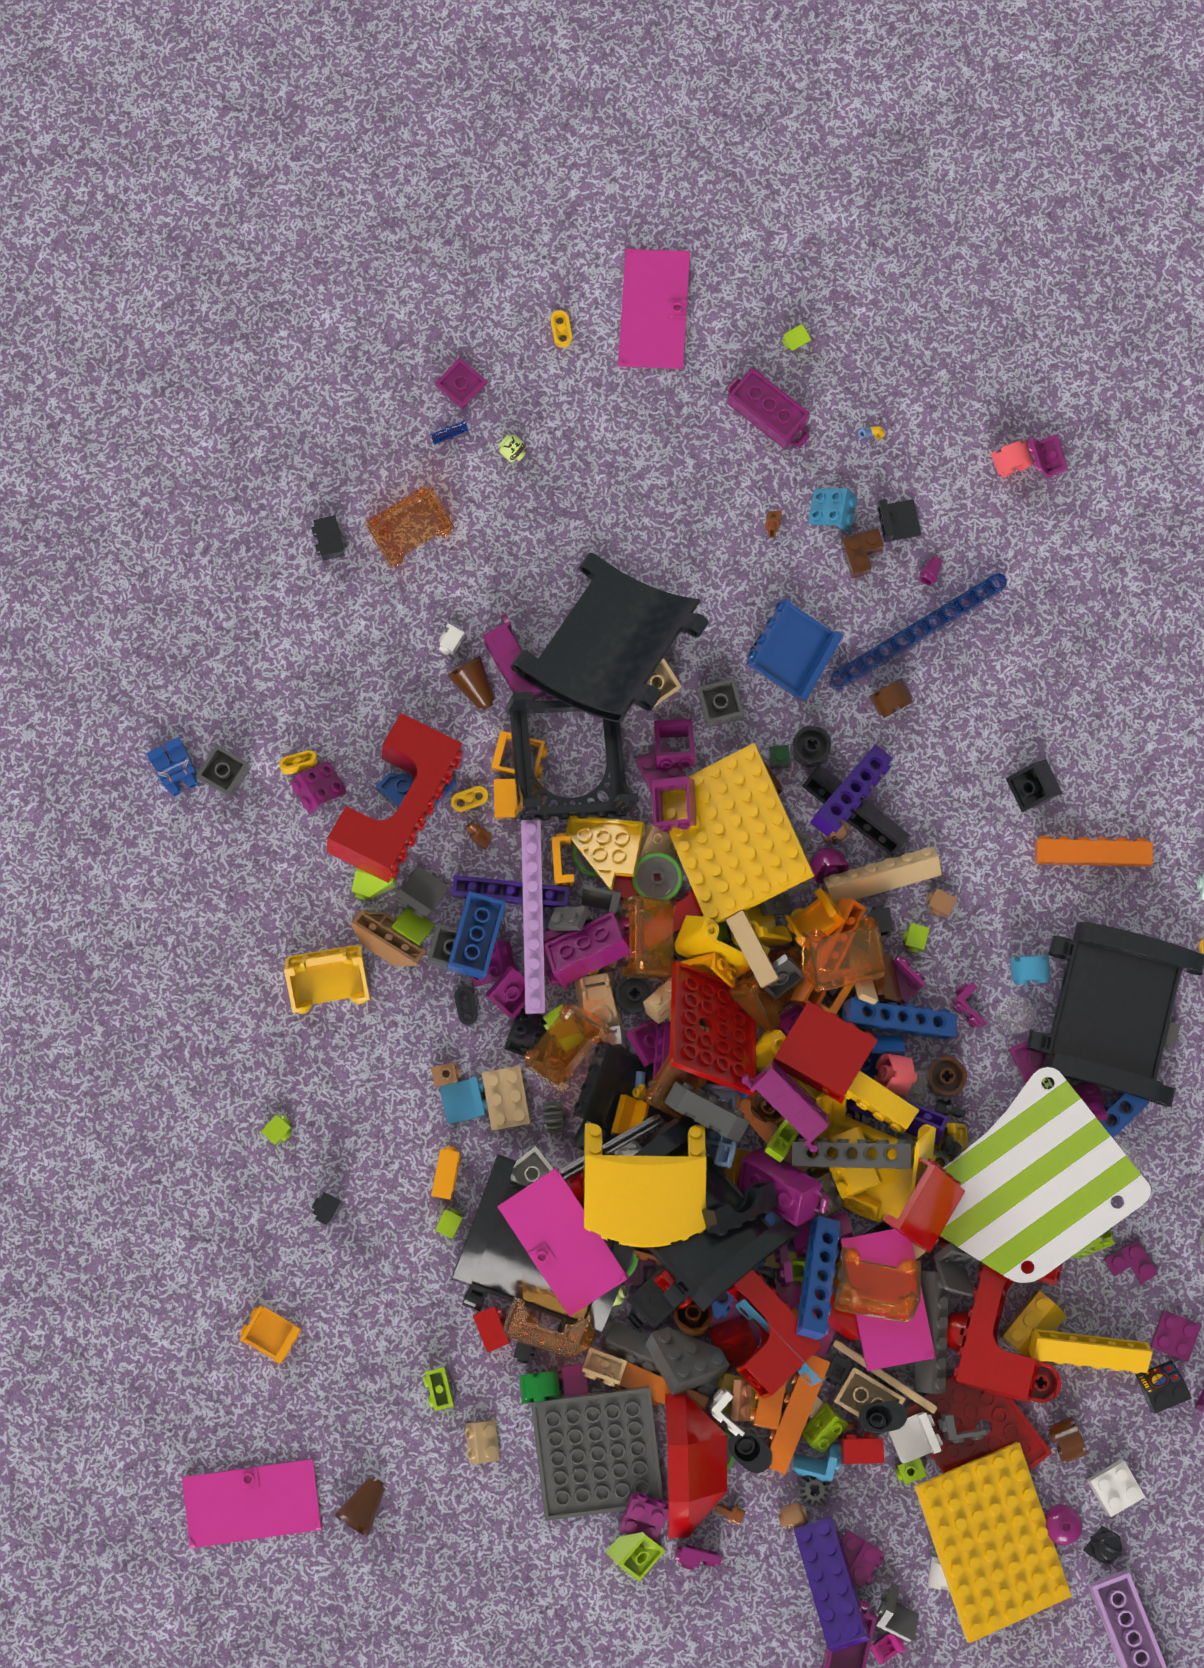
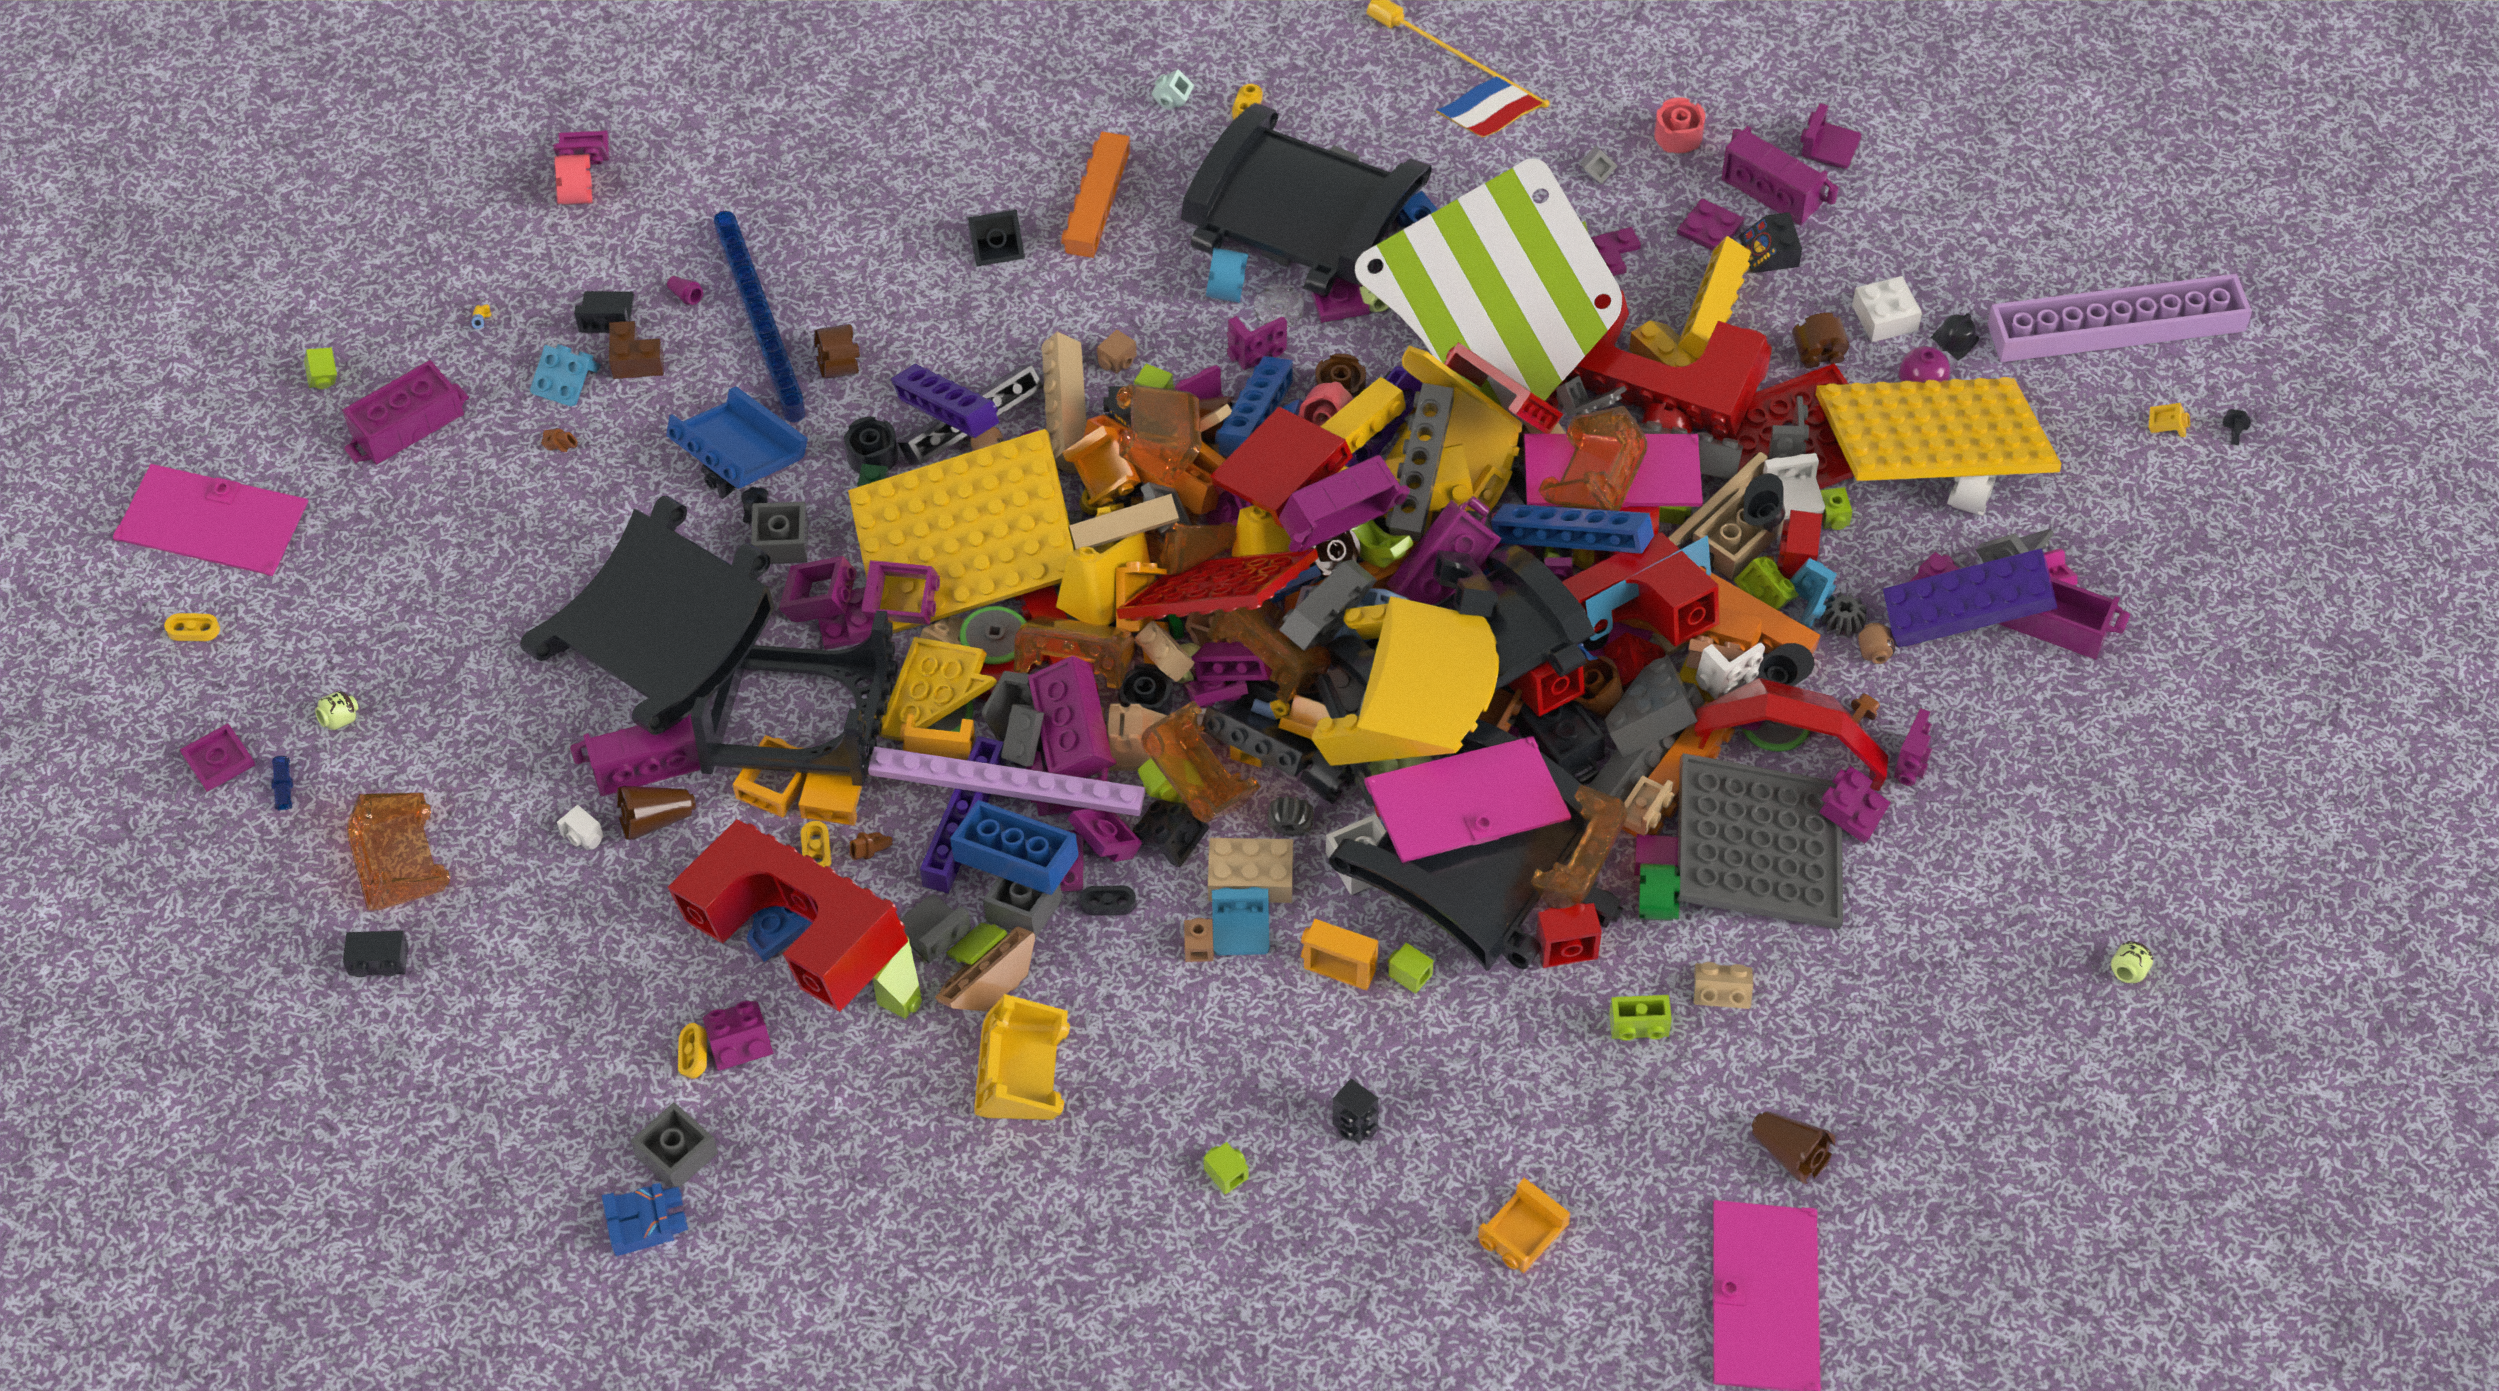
camera: 75 degrees left, 25 degrees down
(635, 1553) = (1900, 827): lime slope -> none
(751, 676) = (752, 496): none -> black piece

